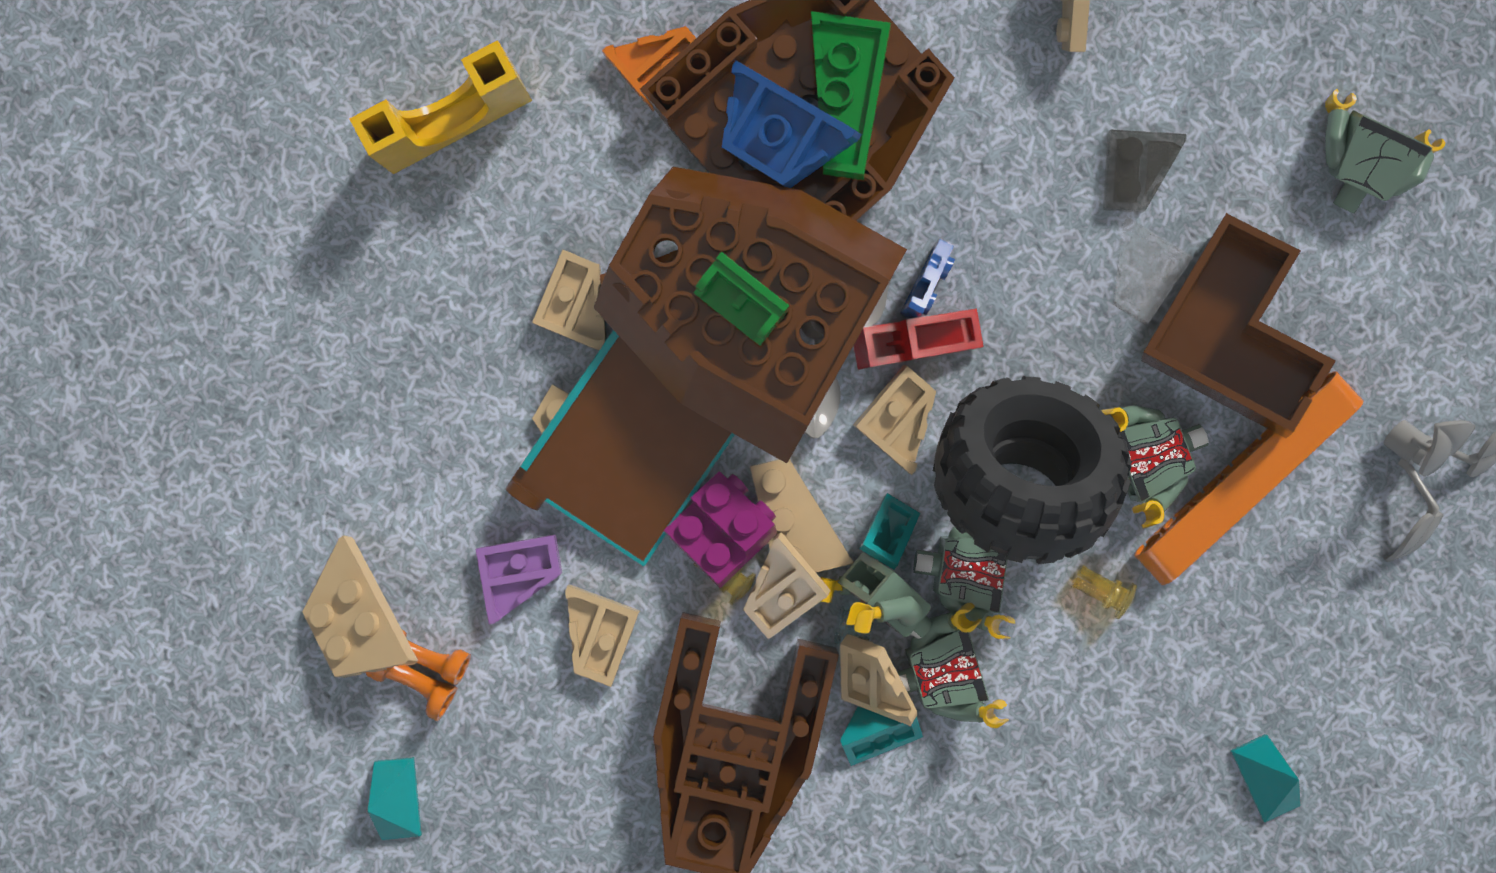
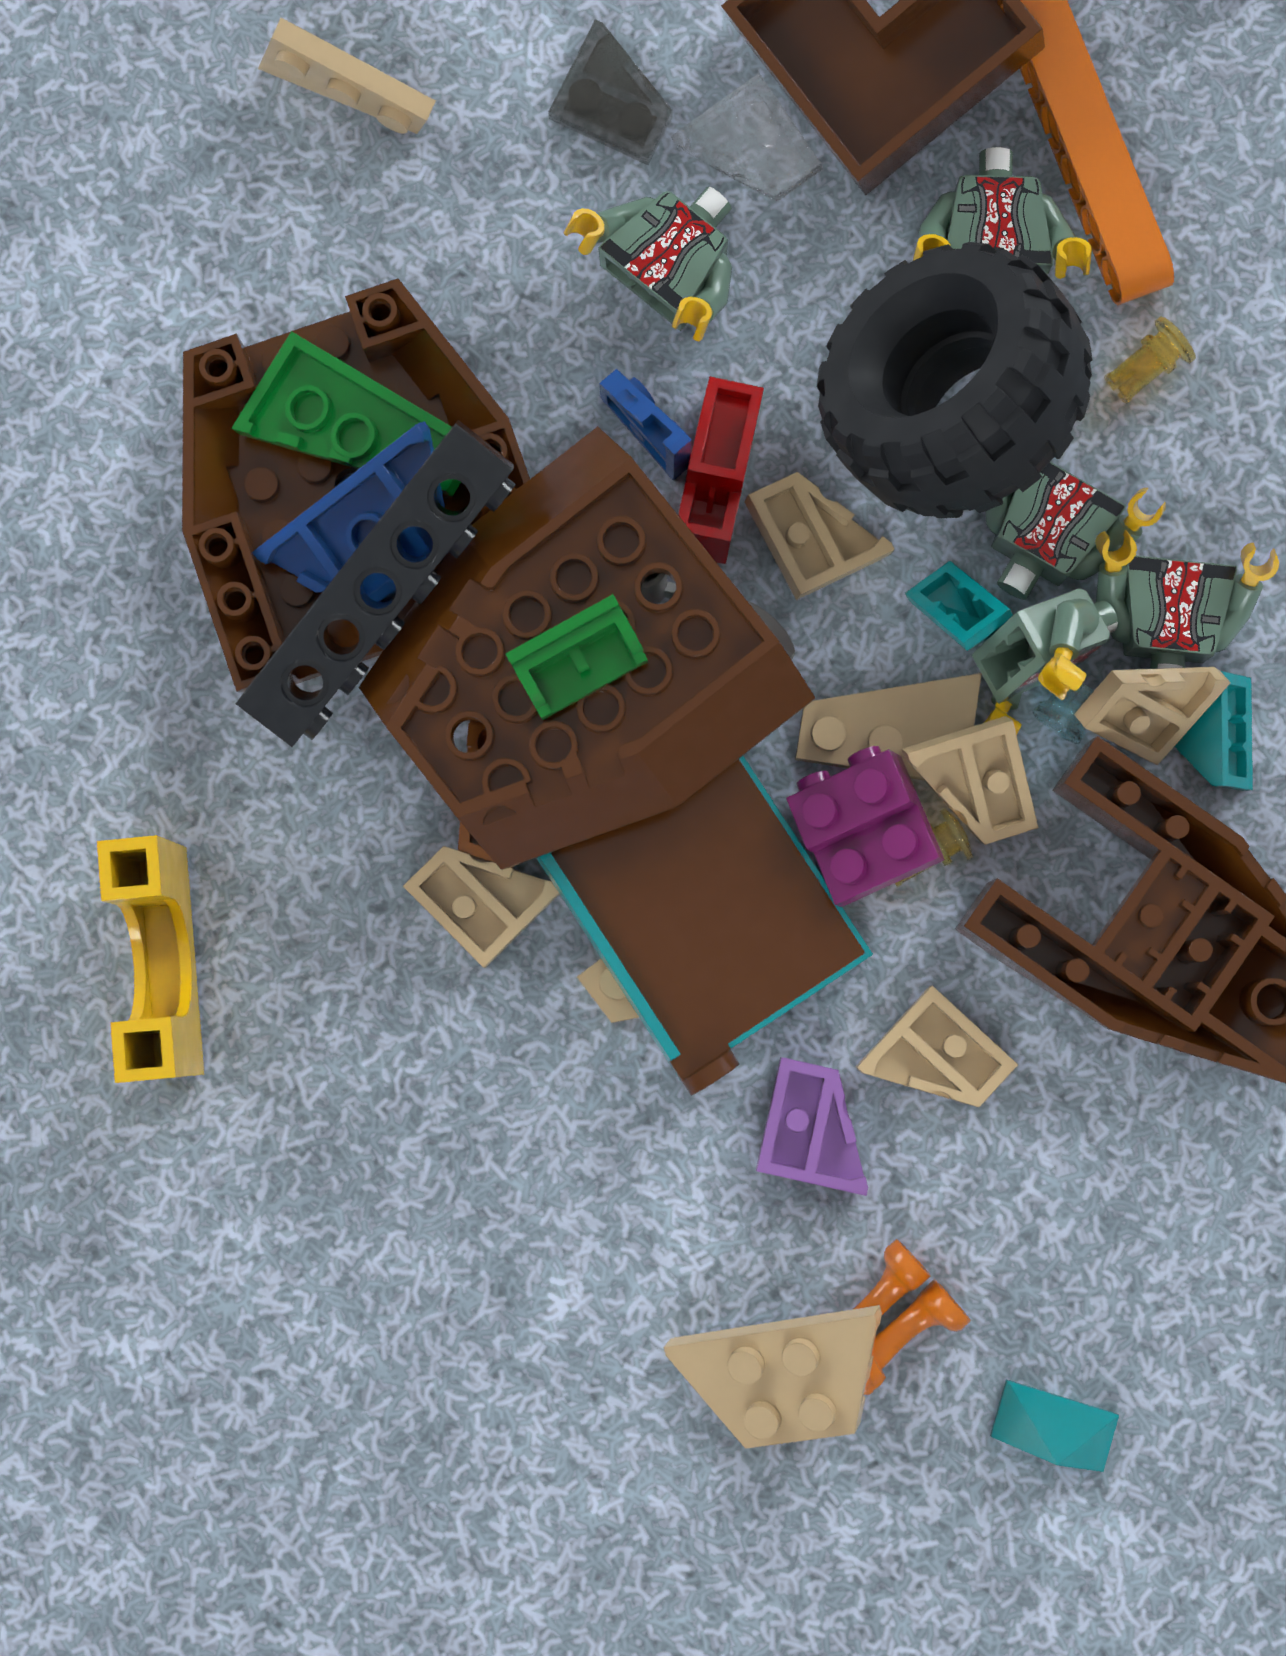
camera: 65 degrees left, 5 degrees down
(644, 114) = (273, 694): none -> black brick
(646, 57) = (196, 667): orange wing -> none
(1045, 245) = (664, 253): none -> torso

